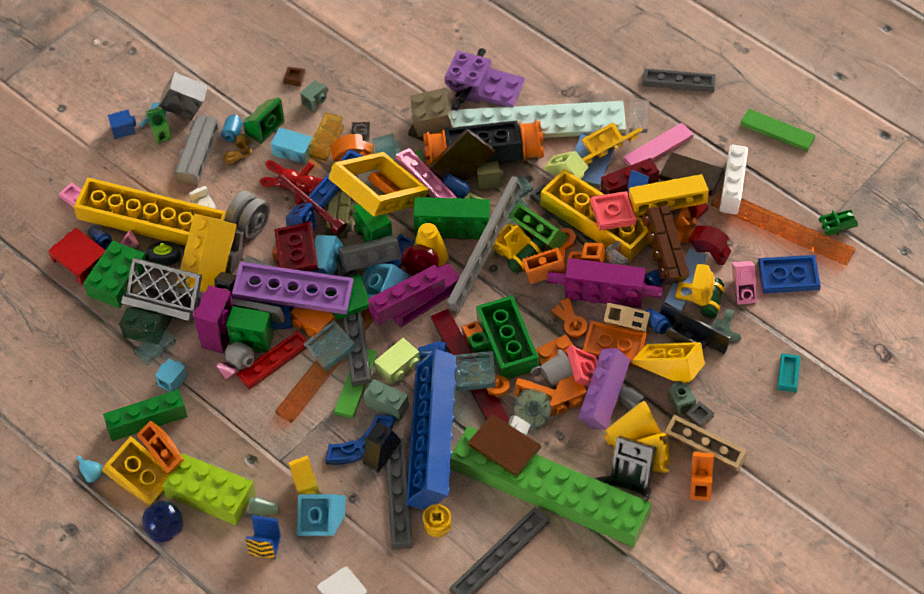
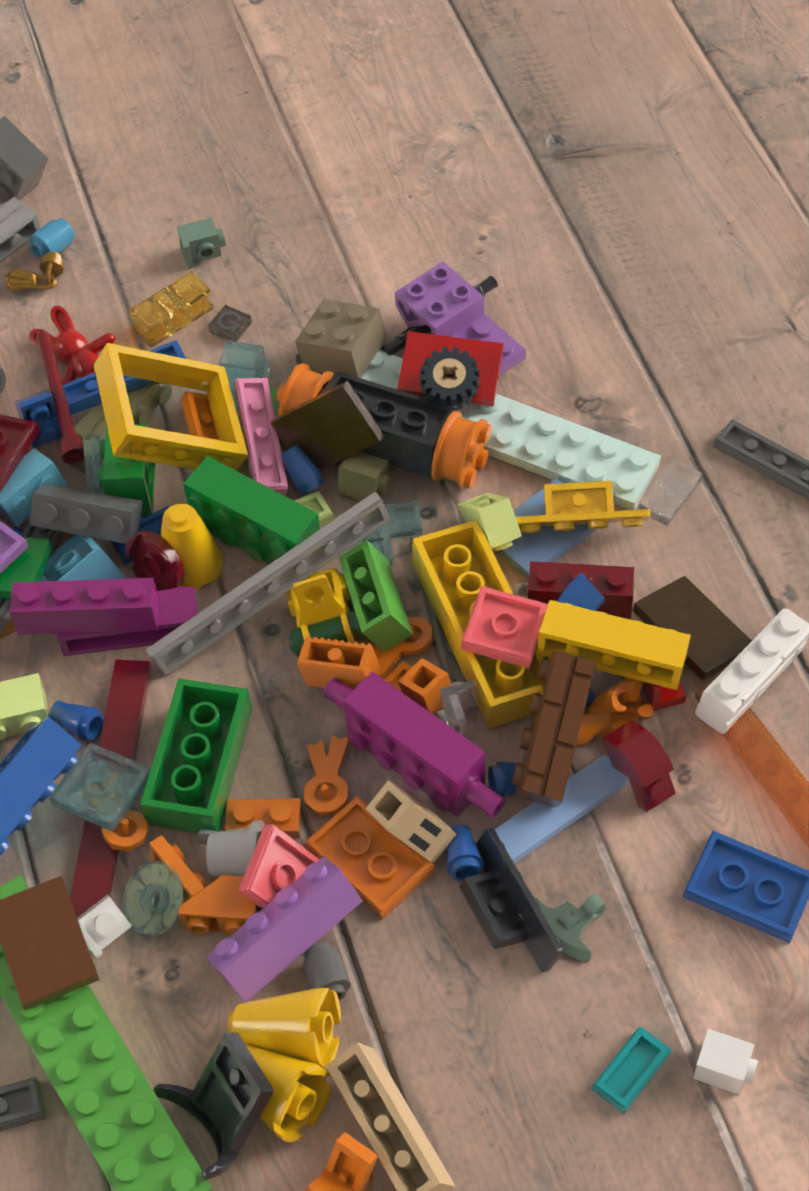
camera: 30 degrees right, 0 degrees up
(264, 120) = (102, 248): green slope -> none
(291, 146) = (110, 299): medium azure brick -> none
(294, 76) = (198, 203): reddish brown tile -> none
(347, 142) = (193, 339): orange brick -> none
(353, 228) = (92, 461): none -> clear light blue tile
(475, 337) = (148, 731): green leg -> none
(497, 102) = (486, 354): none -> red tile
(507, 112) = (450, 390): none -> black wheel
(660, 145) = (675, 556): bright pink tile -> none
(672, 360) = (433, 939): yellow slope -> none
(681, 397) = (413, 1027): sand green brick -> none
(700, 414) = (421, 1064): dark grey plate -> none
(705, 291) = (572, 841): yellow piece -> none
(744, 282) = (657, 861): bright pink slope -> none
(826, 348) = (725, 1062): none -> white brick

